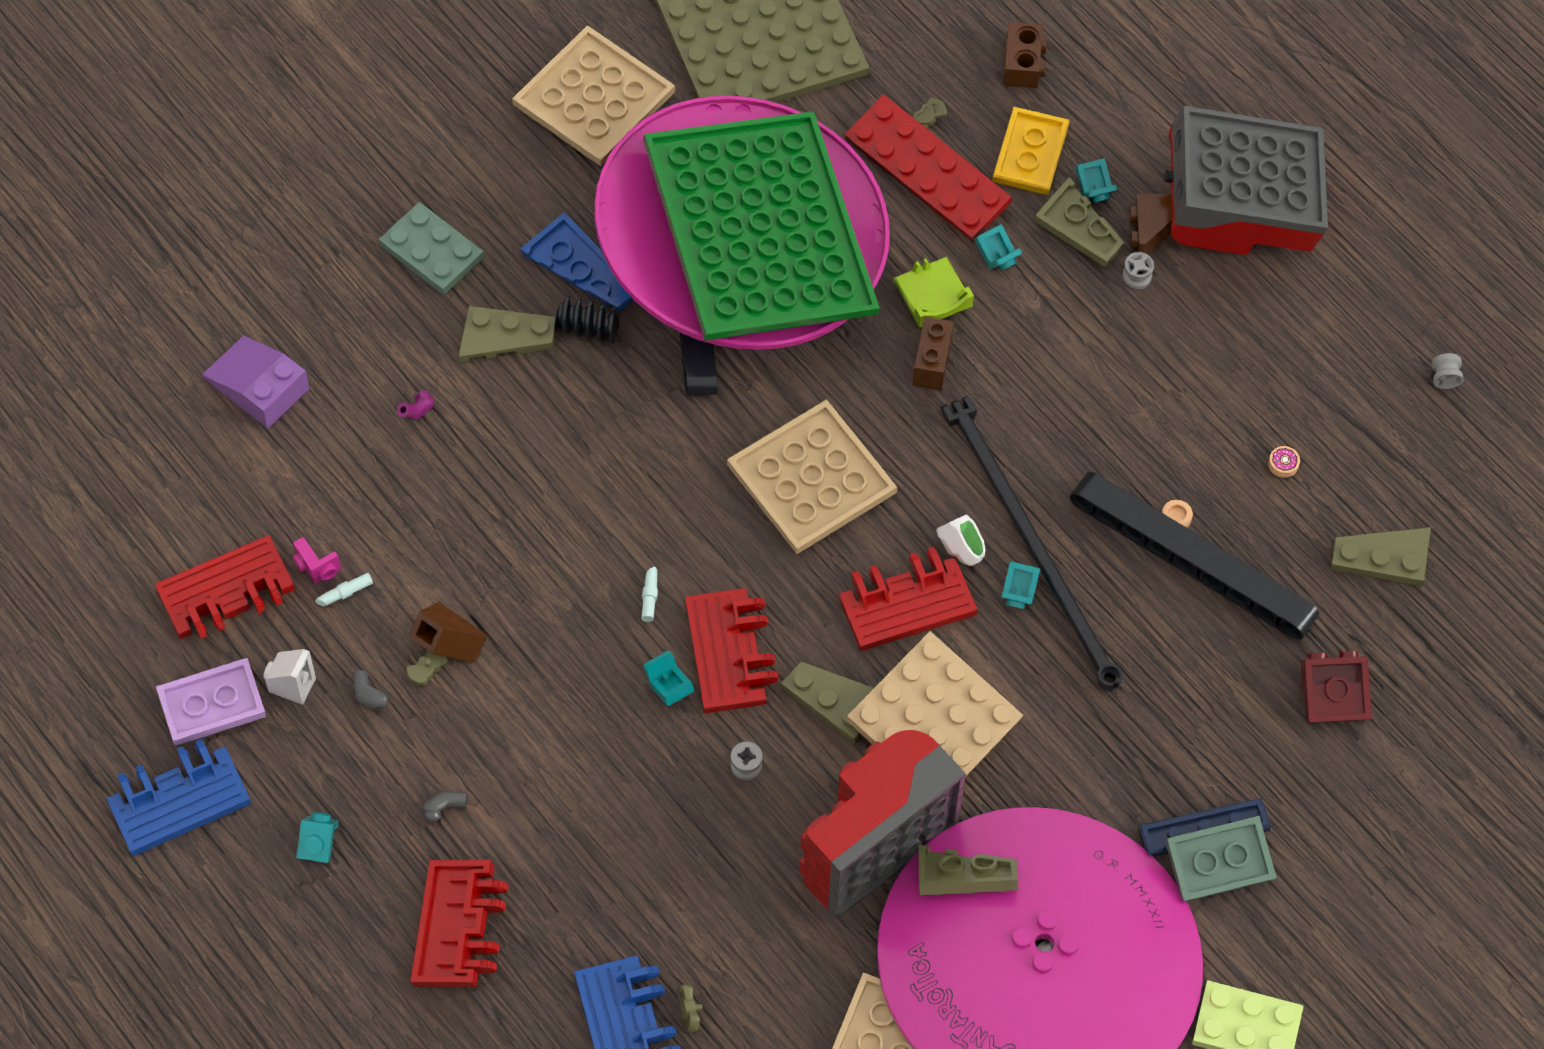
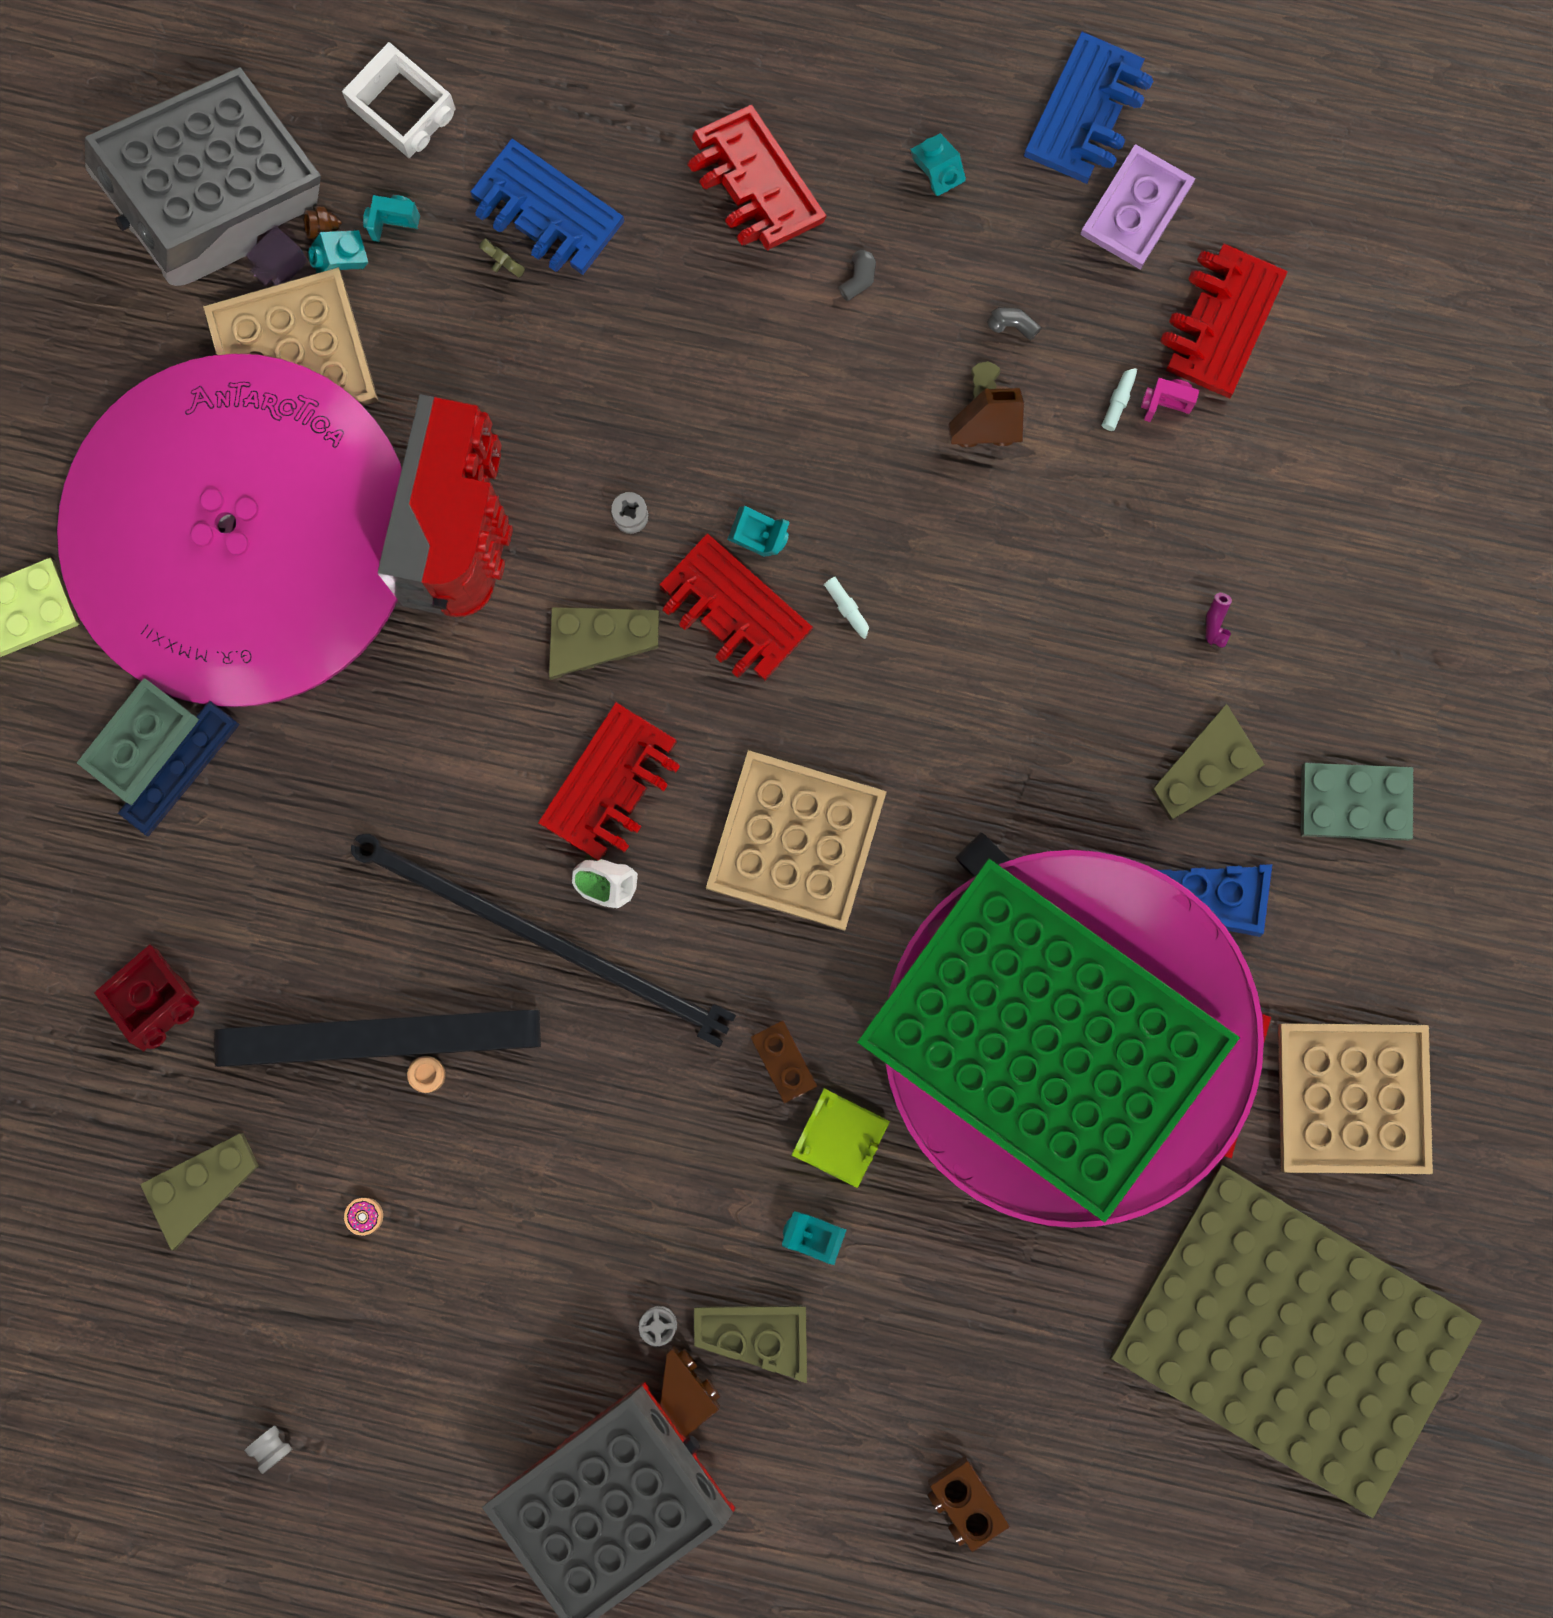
camera: 145 degrees right, 20 degrees up
(258, 379) = (1387, 533): medium lavender slope -> none
(290, 675) = (1089, 273): white slope -> none
(587, 320) = (1140, 833): black piece -> none
(928, 168) = (958, 1281): red plate -> none
(930, 111) = (1006, 1344): olive piece -> none
(940, 697) = (494, 682): tan plate -> none
(960, 874) = (343, 529): olive wing -> none
(1020, 584) = (514, 875): teal bracket -> none
(1030, 151) = (873, 1392): yellow tile -> none
(1095, 180) = (776, 1400): teal bracket -> none

